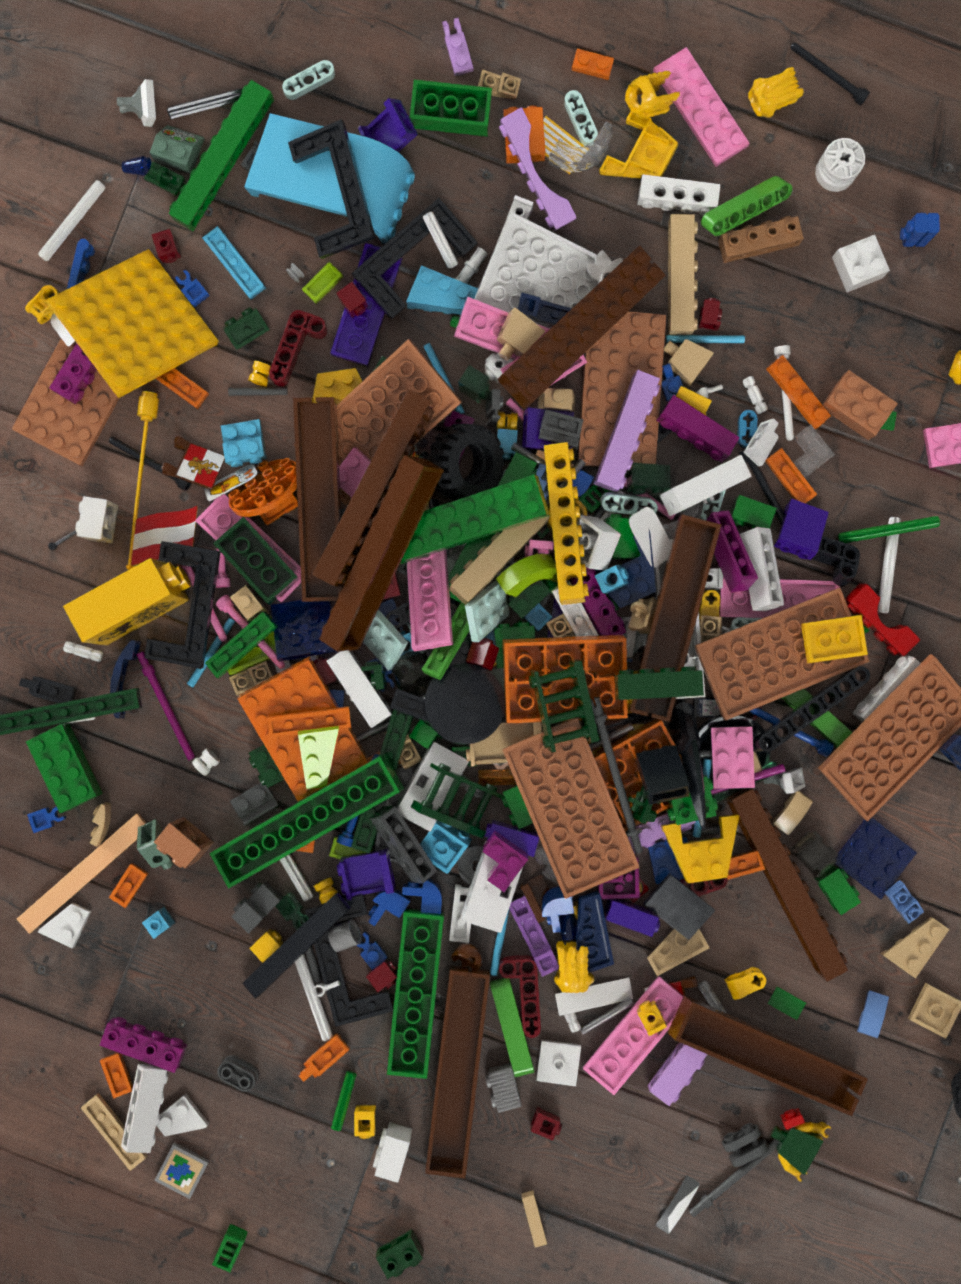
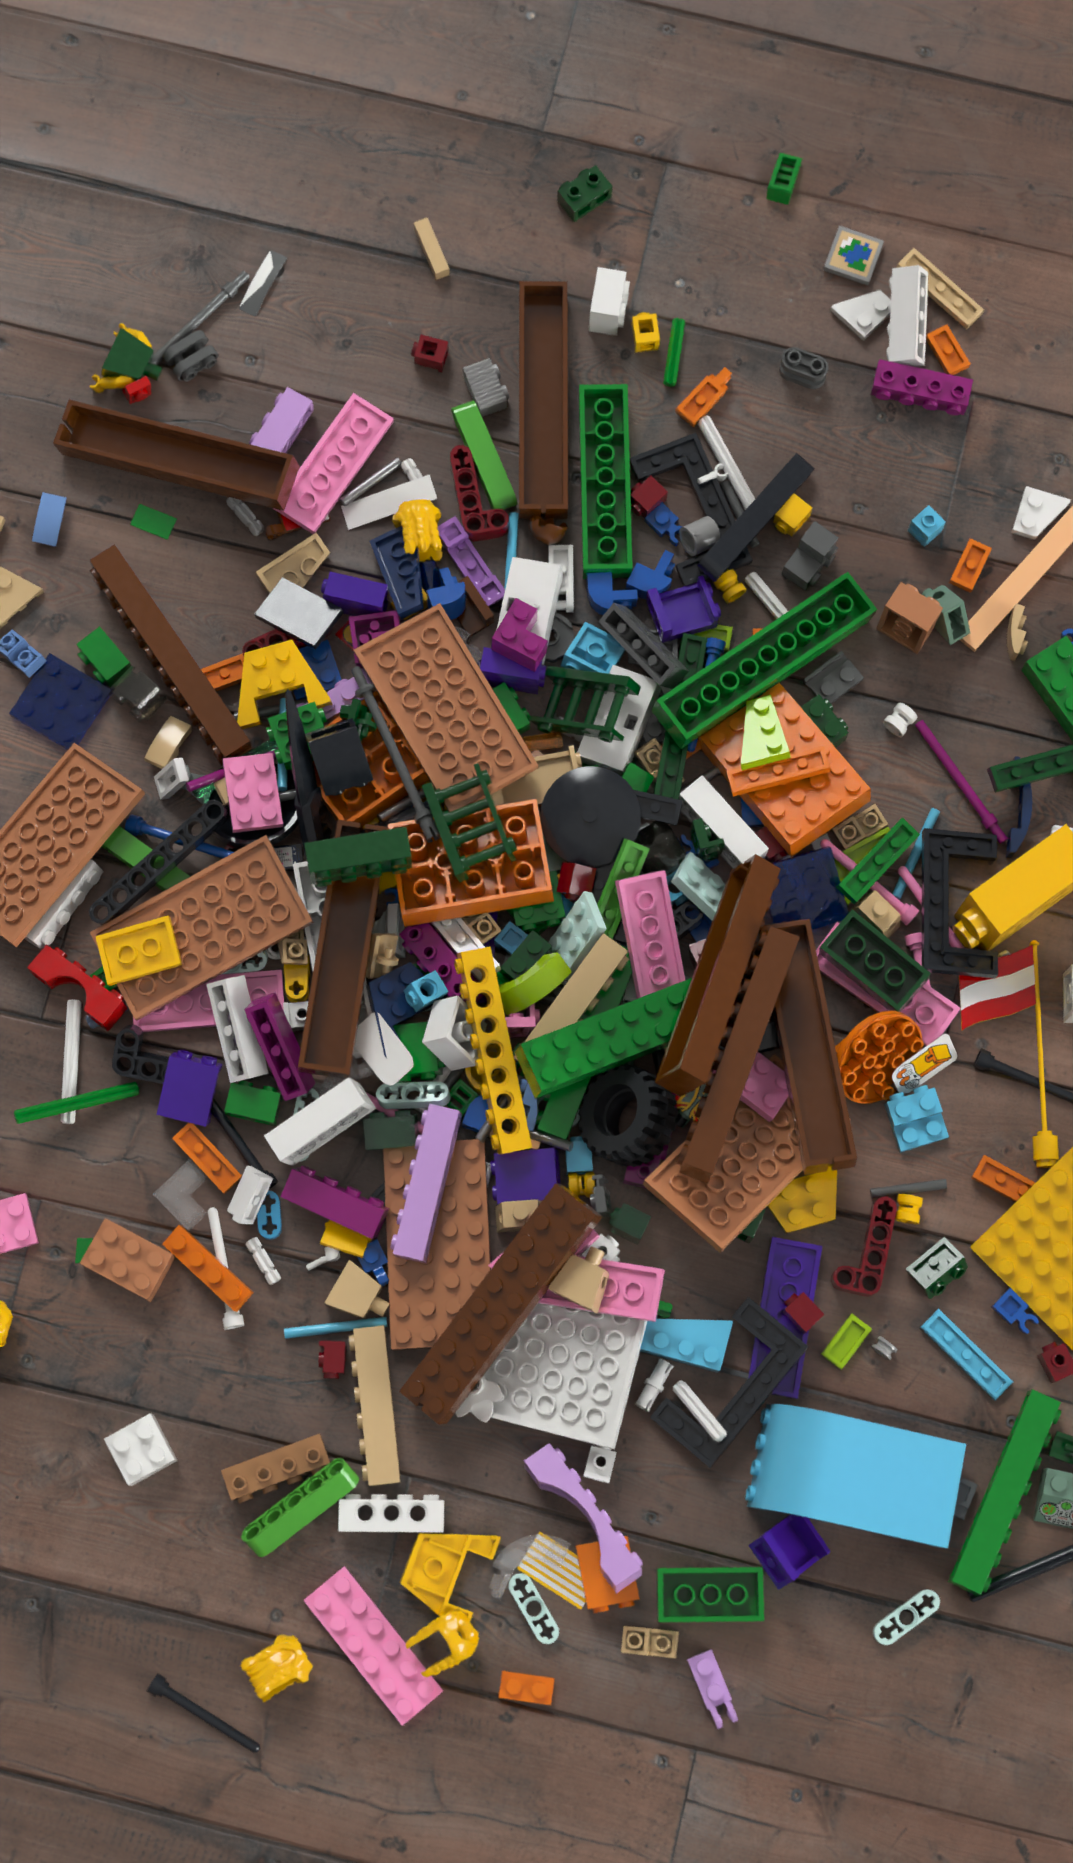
camera: 165 degrees right, 10 degrees down
(197, 464) = (968, 1082): flag -> none
(290, 910) = (769, 559): clear green plate -> none
(336, 139) = (851, 1505): black plate -> none
(436, 364) = (670, 1233): medium azure bar -> none
(541, 310) = (554, 1327): dark blue slope -> none
(558, 1062) = (423, 423): white plate -> none
(560, 428) = (512, 1175): dark grey plate -> none
(650, 1008) = (319, 492): yellow brick -> none
(743, 983) = (208, 537): yellow piece -> none
(840, 164) = (195, 1581): white wheel -> none
(920, 230) = (67, 1500): blue brick -> none

